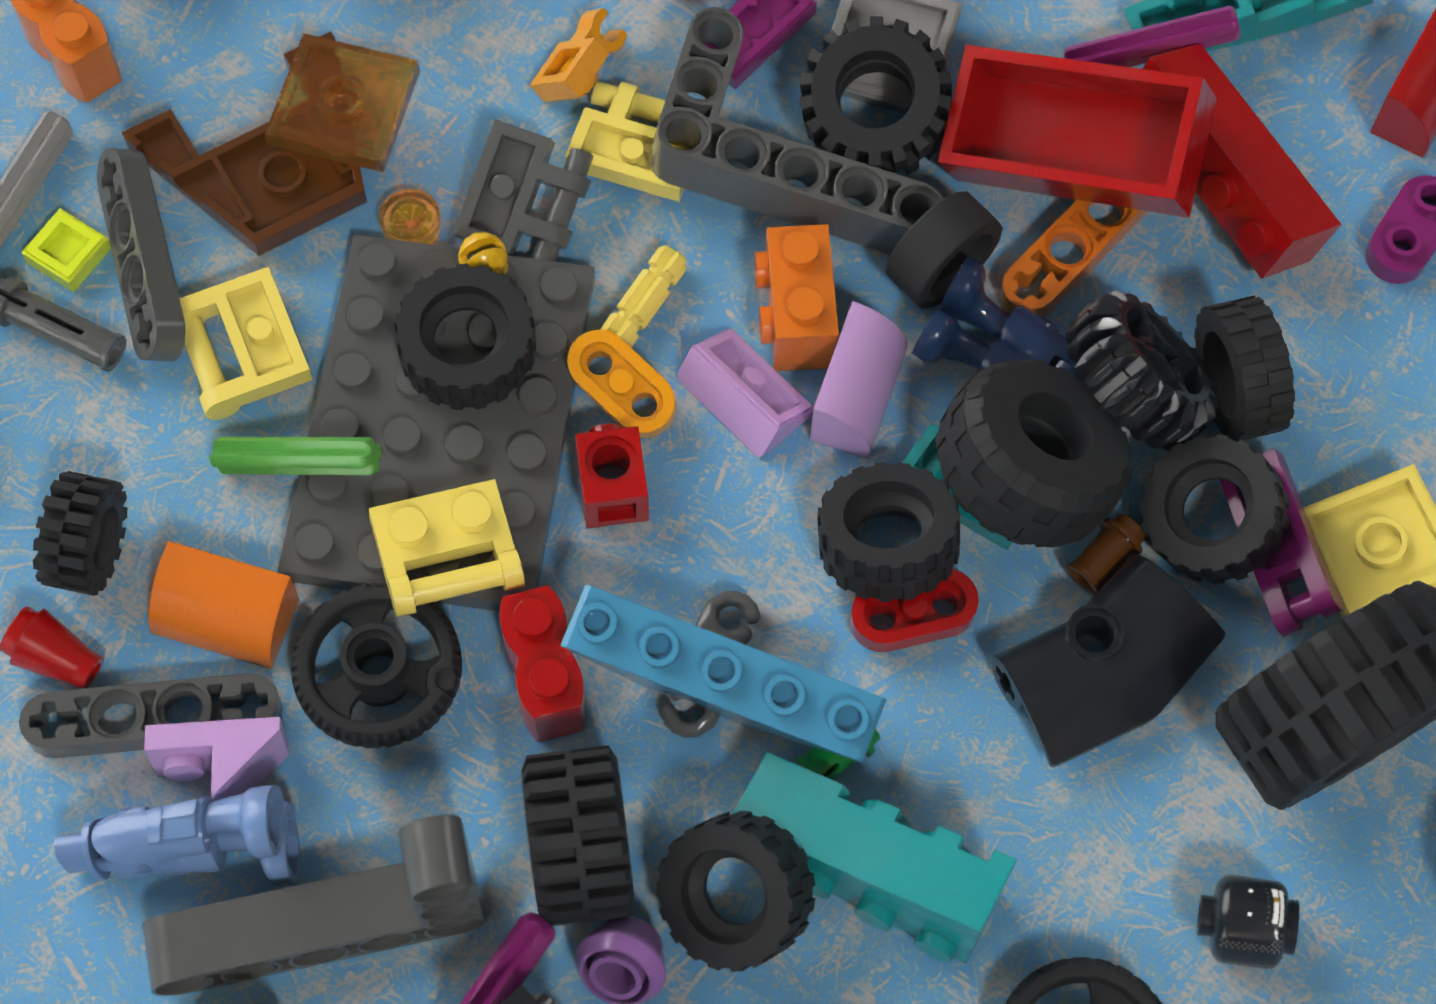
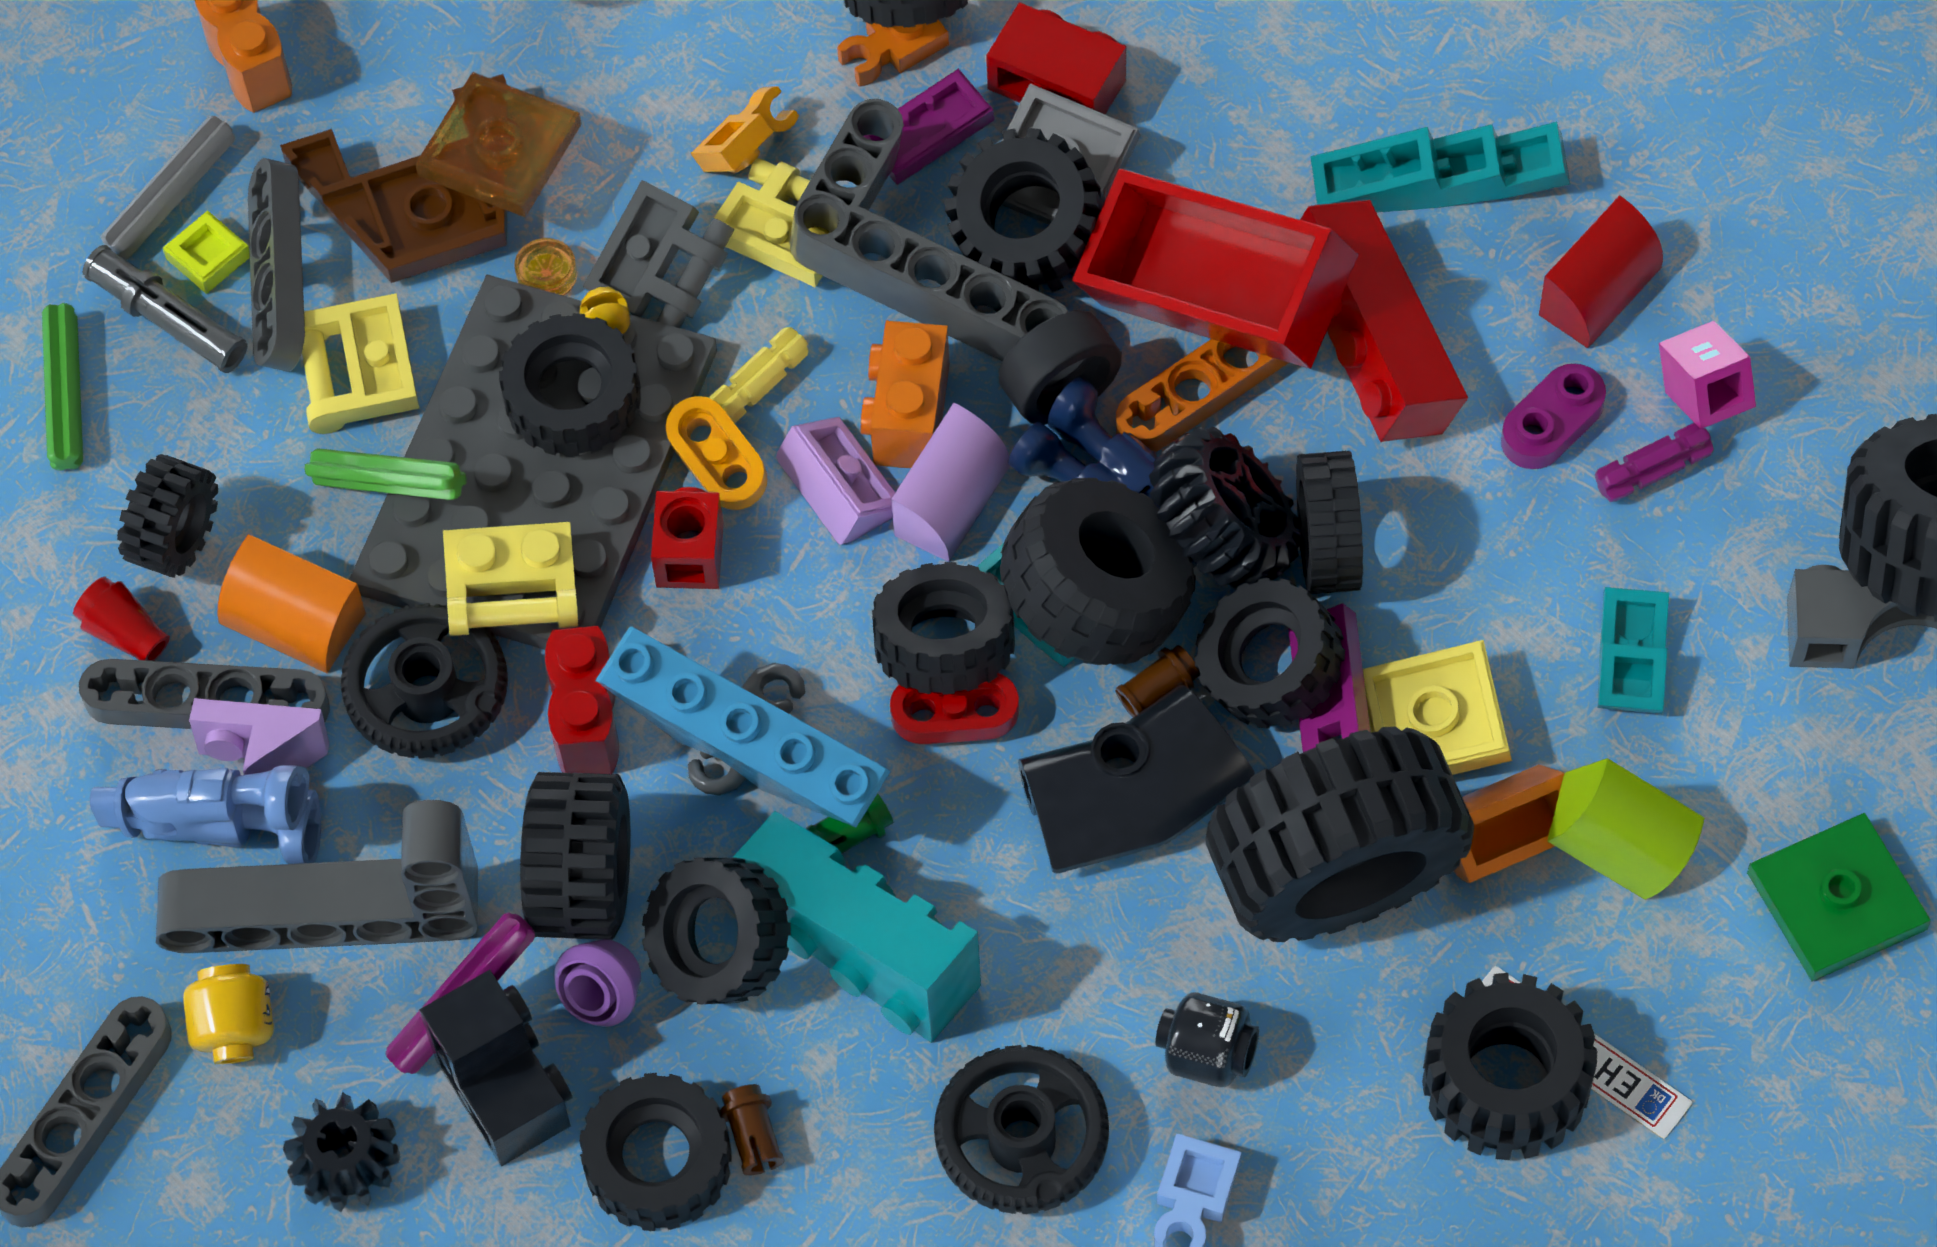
camera: 15 degrees right, 5 degrees down
(1139, 45) = (1293, 197): magenta axle -> none

